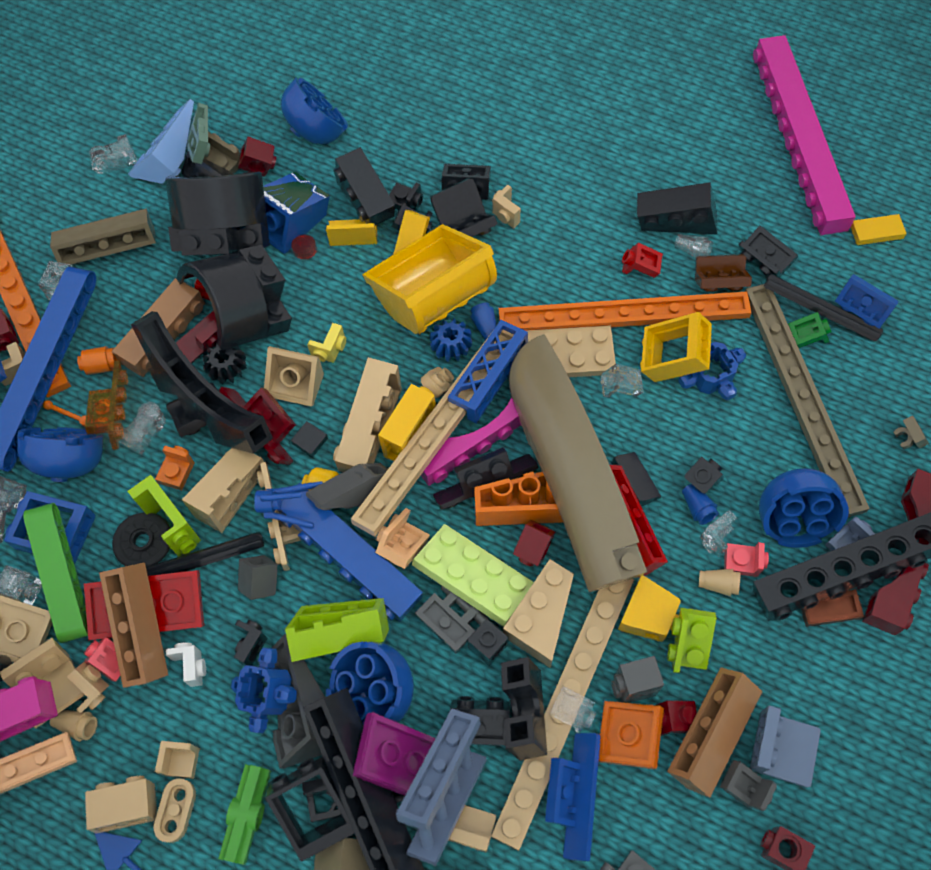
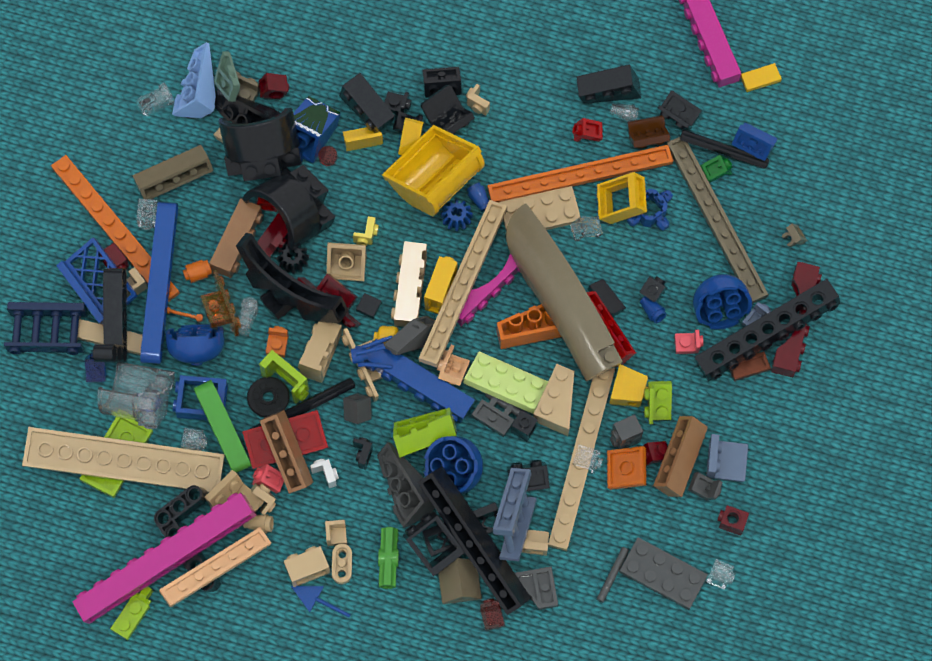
camera: 15 degrees left, 5 degrees up
(277, 693) = (394, 479): blue piece -> none
(311, 113) = (308, 42): blue cylinder -> none
(390, 753) = (479, 501): magenta tile -> none
(438, 381) = (455, 249): tan plate -> none
(482, 471) = (498, 311): black bracket -> none
(495, 377) = (496, 240): blue fence -> none
(526, 729) = (559, 471): black arch -> none
(533, 543) = (543, 355): dark red brick -> none
(573, 795) = (595, 510): blue bracket -> none
(718, 530) = (666, 326): clear bracket -> none
(720, 581) = (673, 360): tan cone -> none

